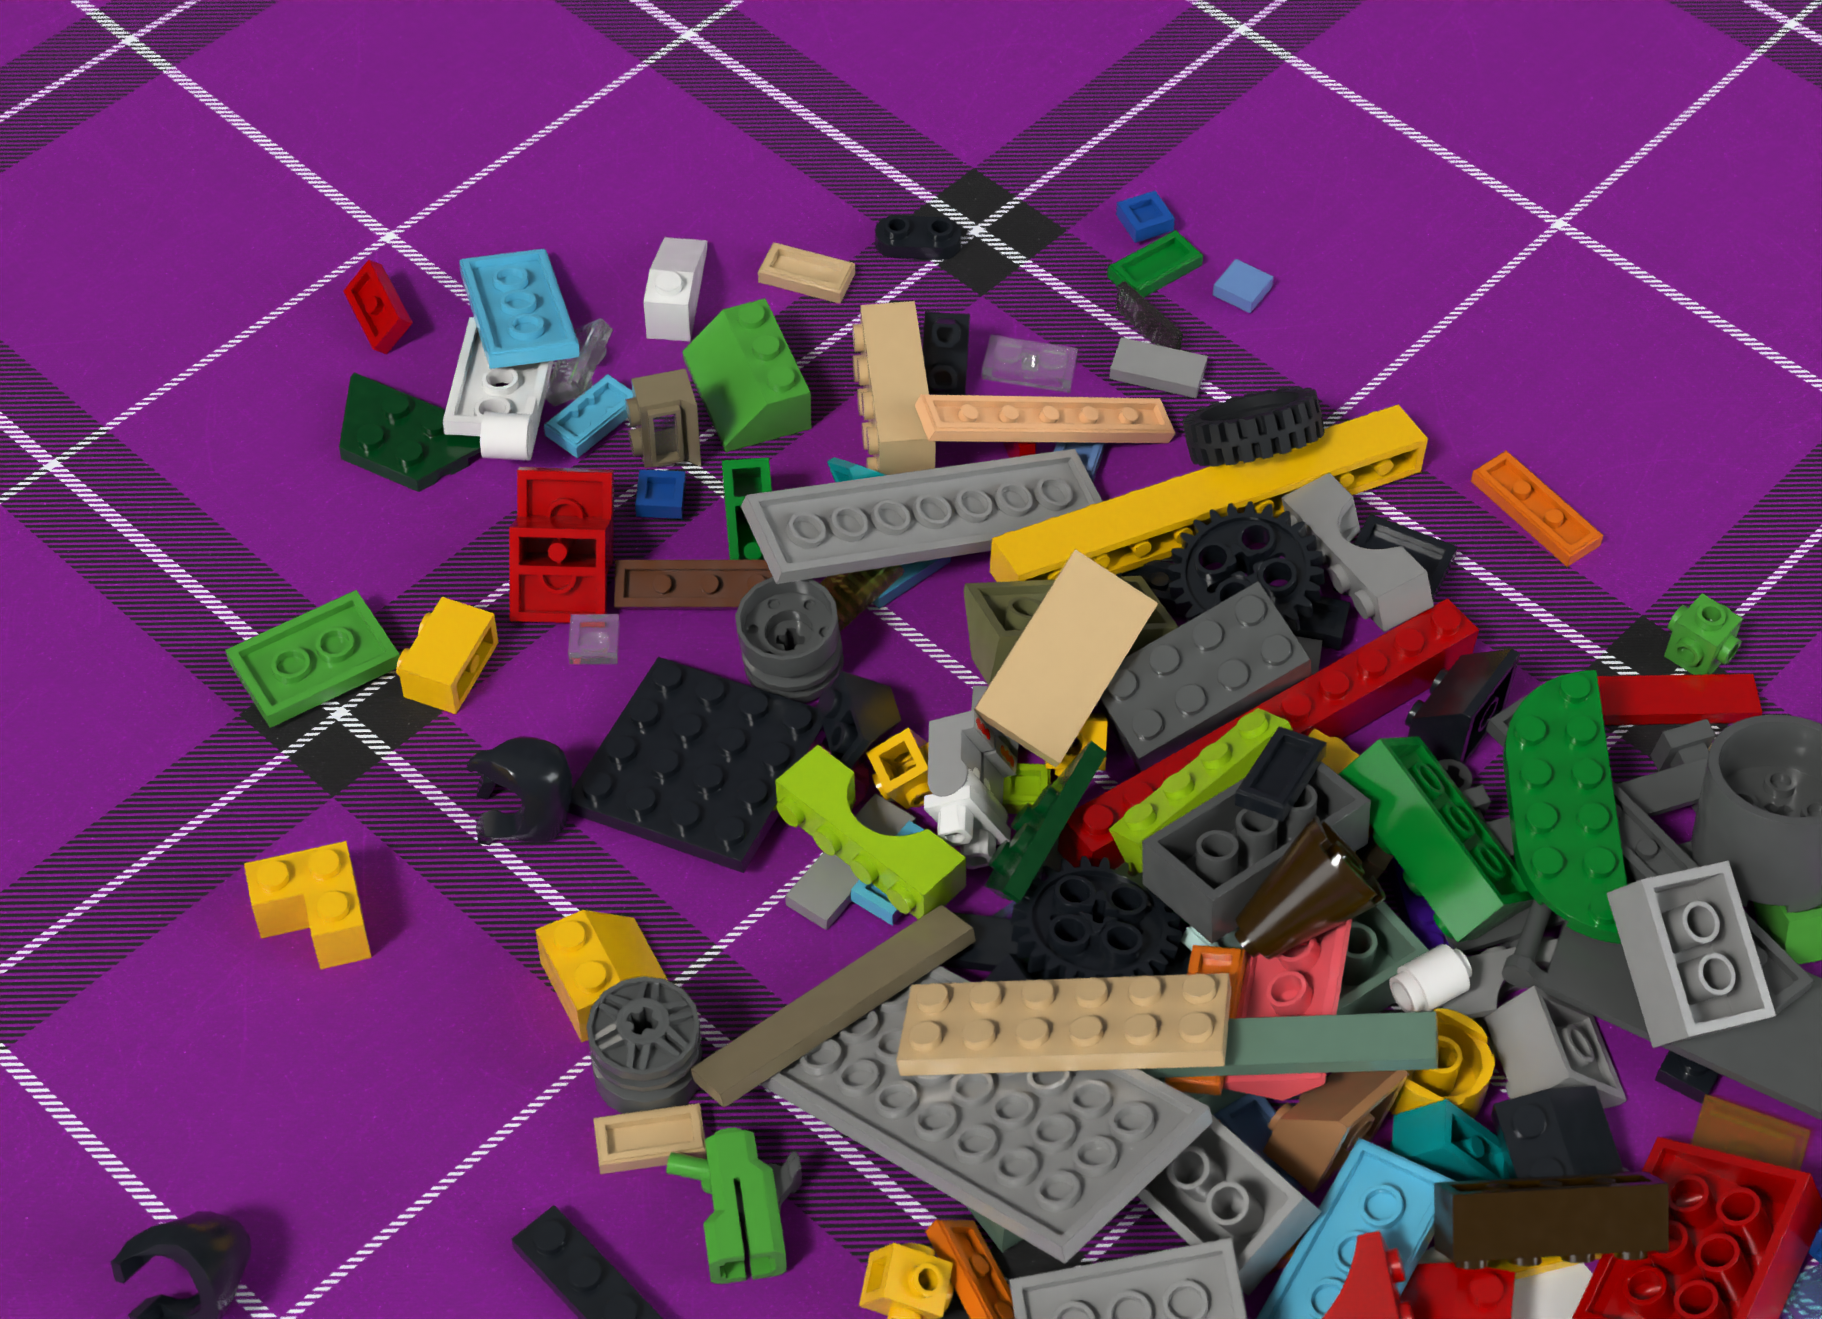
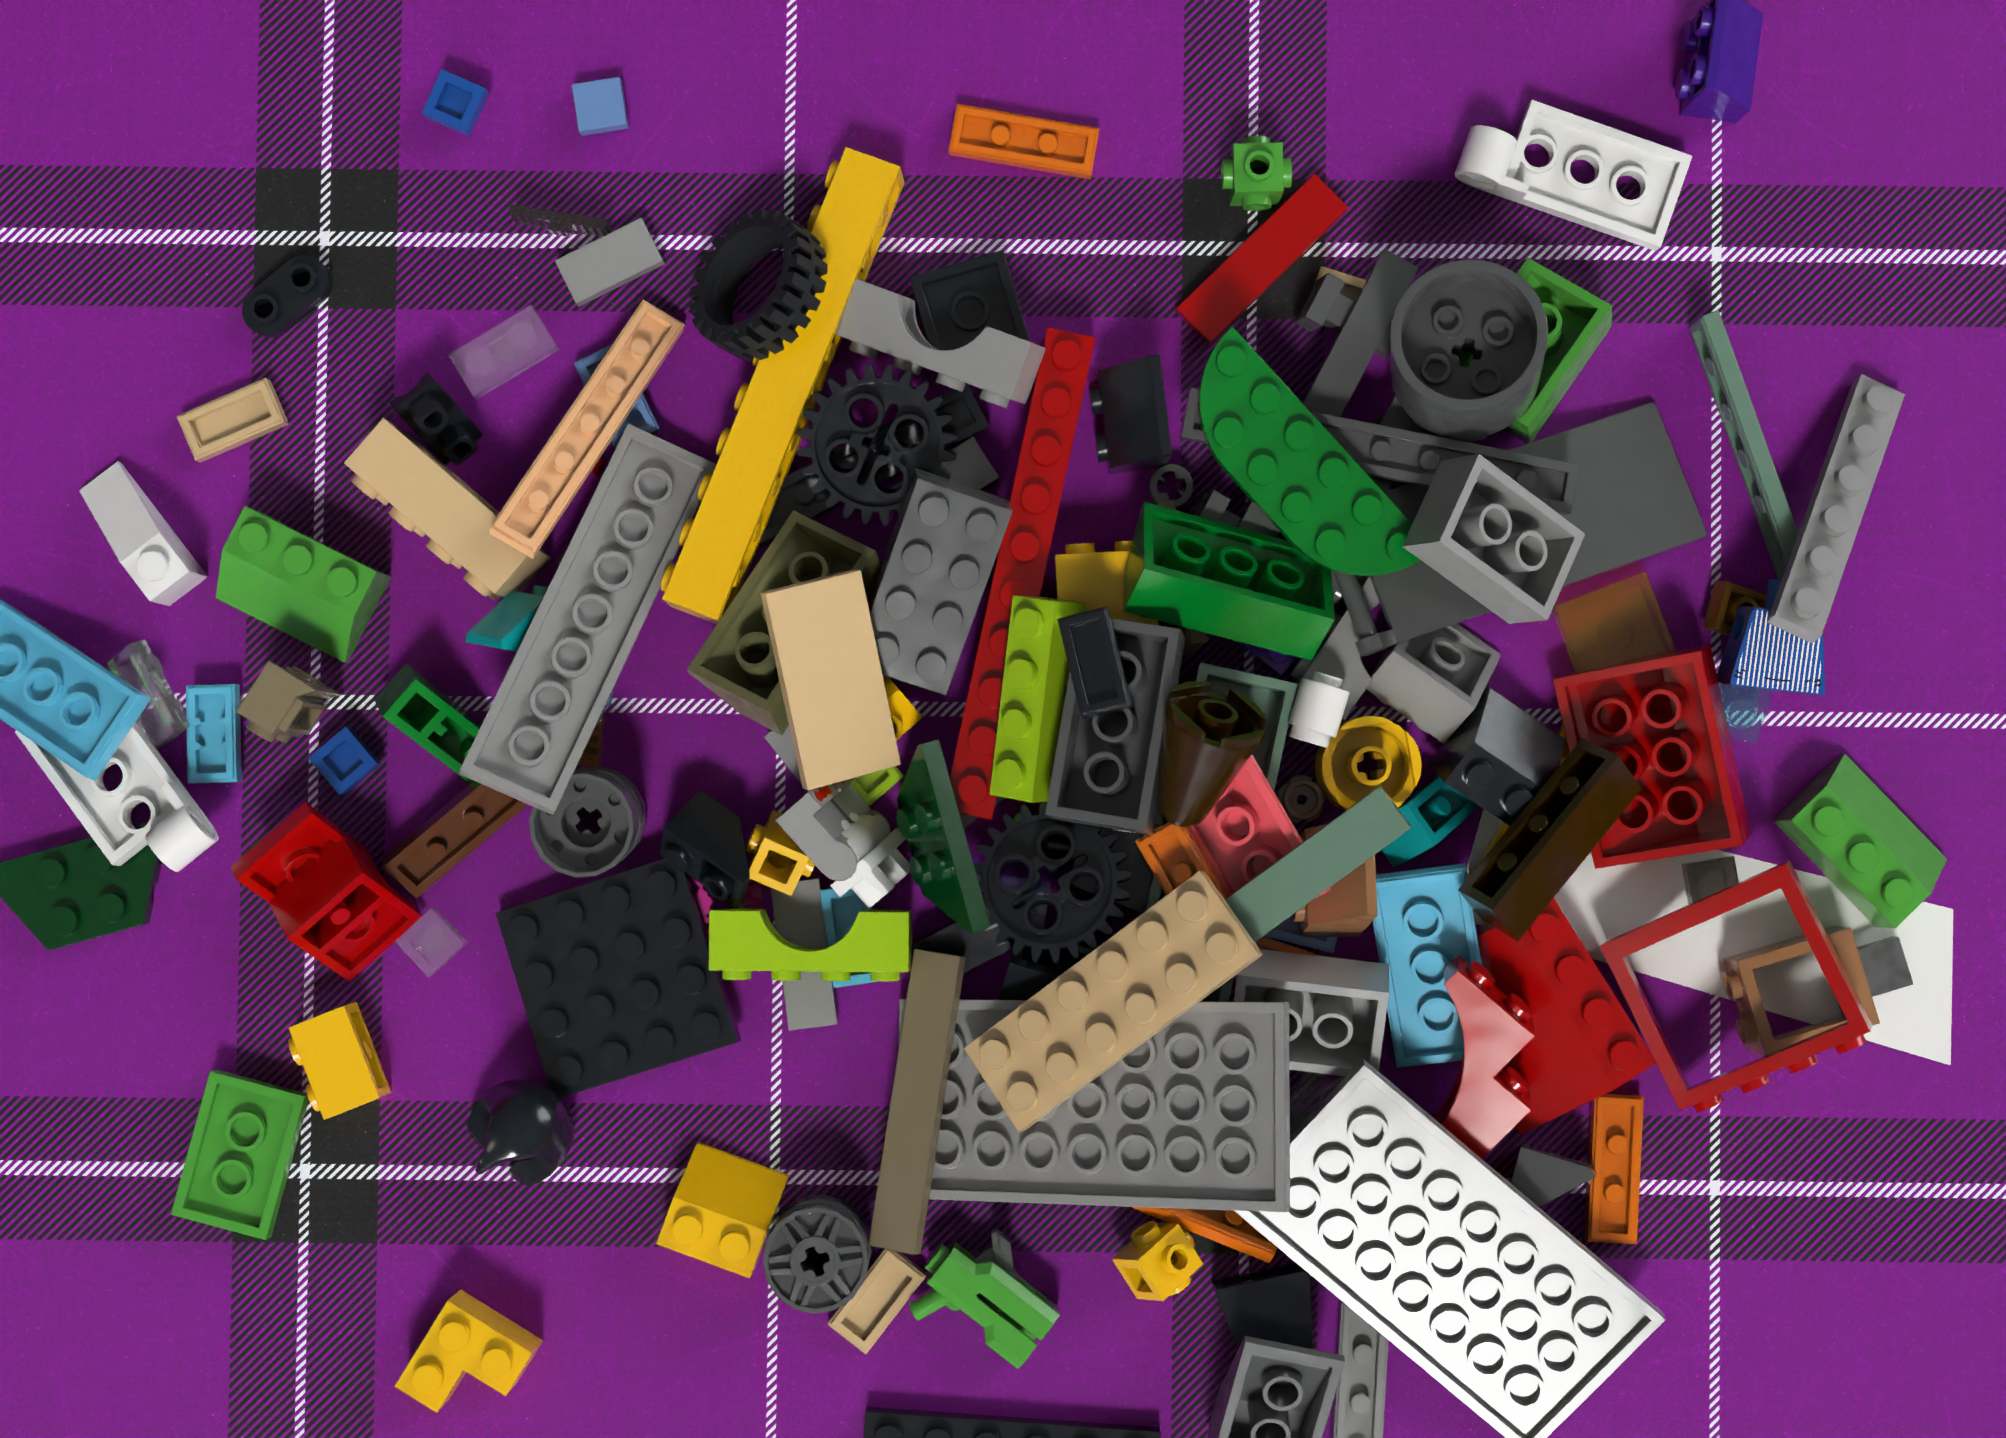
camera: 40 degrees left, 35 degrees up
(1156, 264) = (509, 148): green tile -> none

